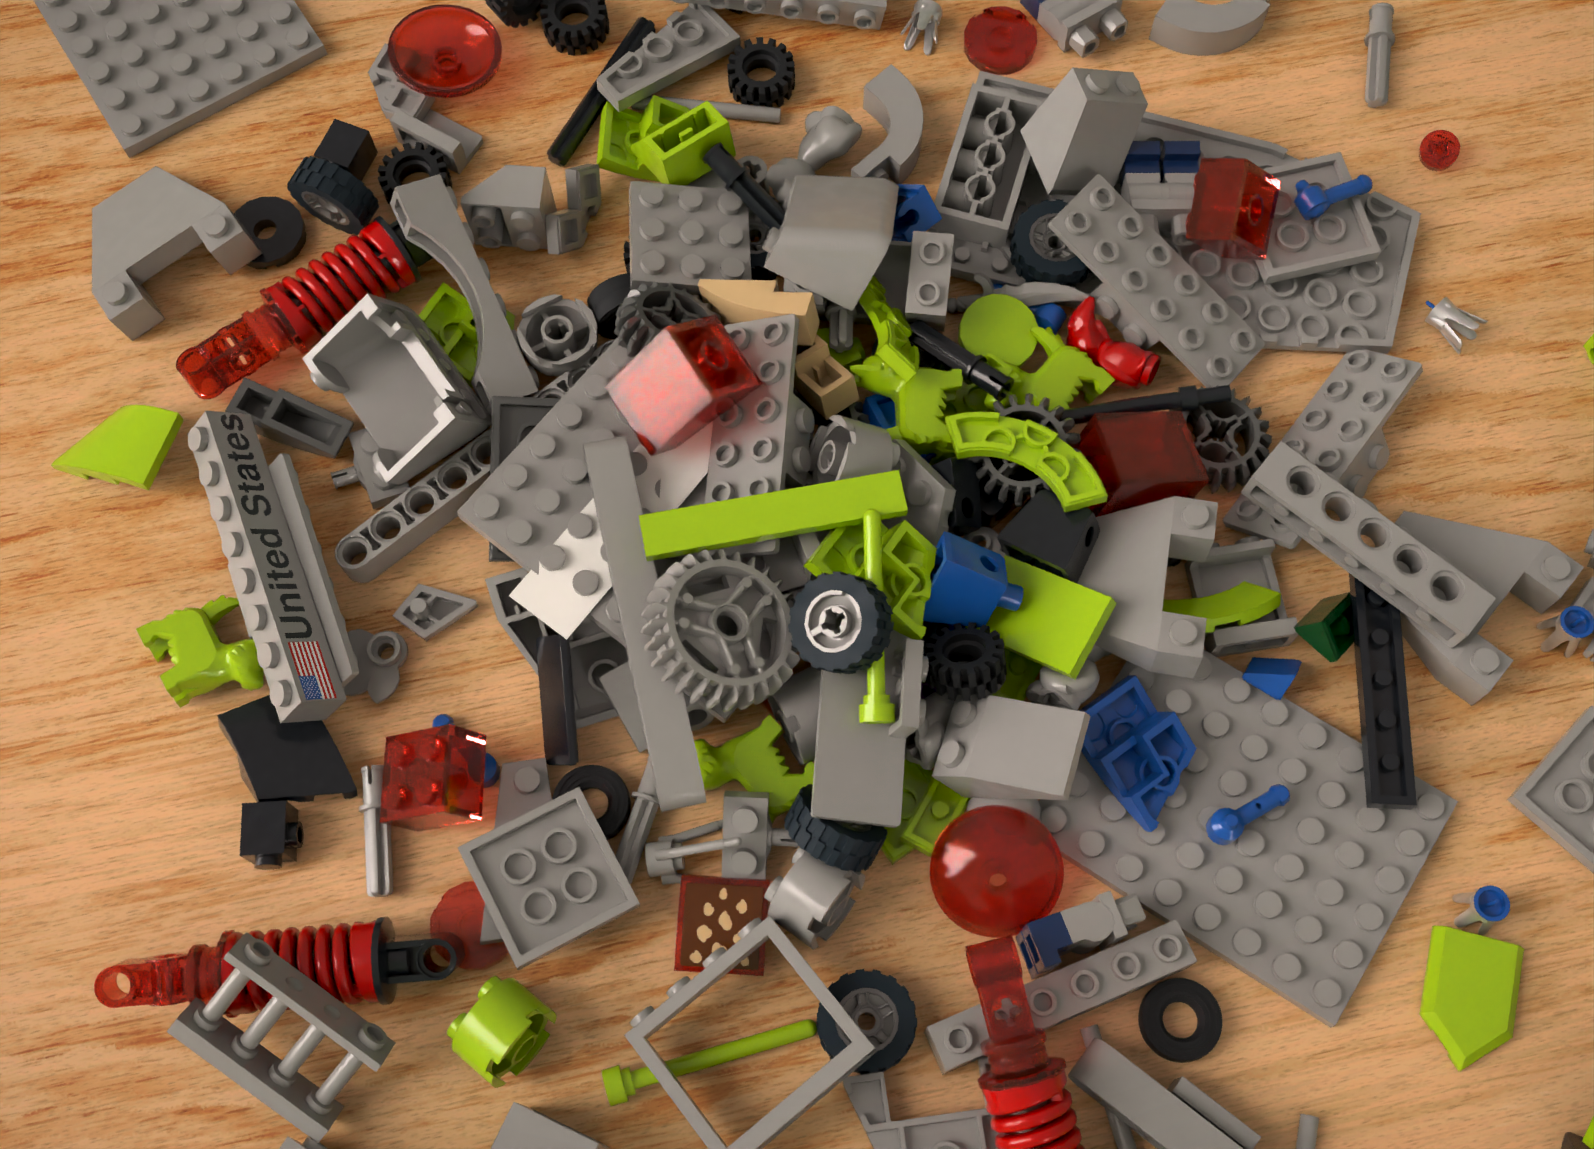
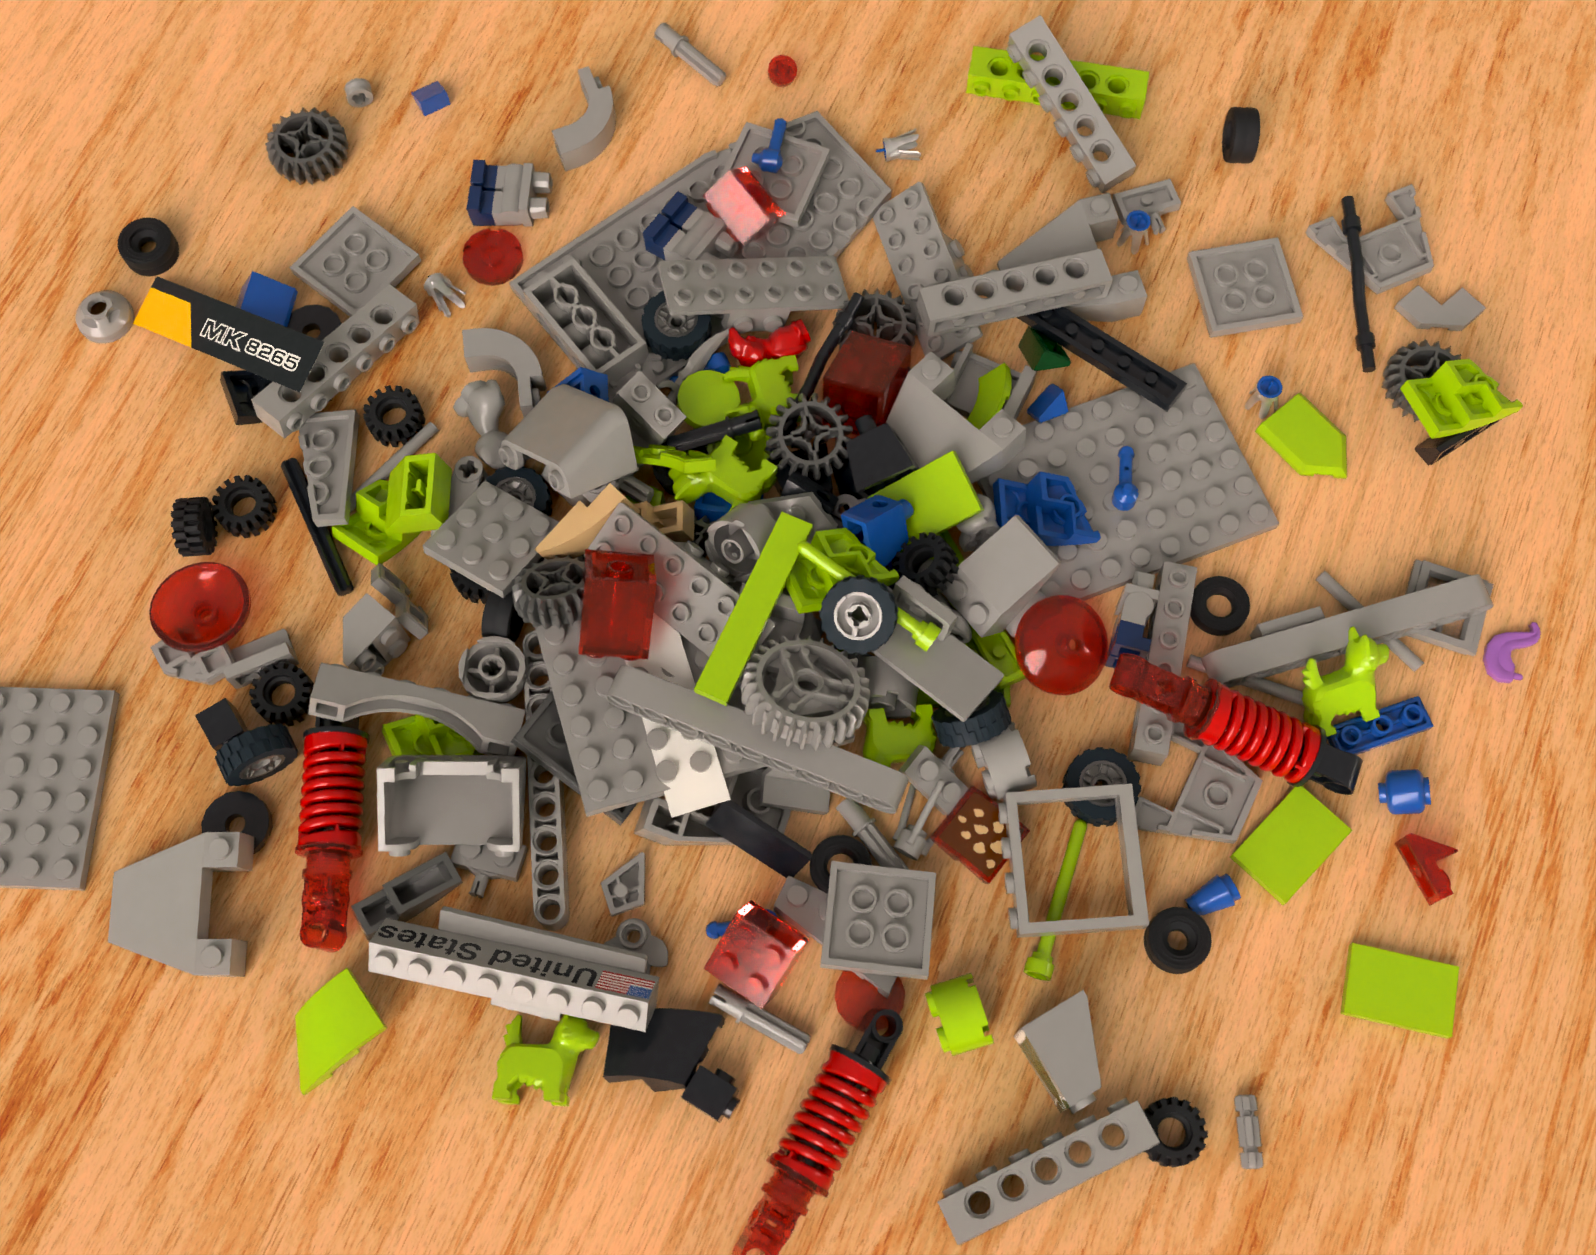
camera: 55 degrees left, 0 degrees up
(256, 1068) = (895, 1186): light grey fence -> none
(744, 185) = (492, 476): black axle -> none
(1034, 448) = (818, 427): lime tile -> none
(1085, 128) = (621, 248): light grey slope -> none

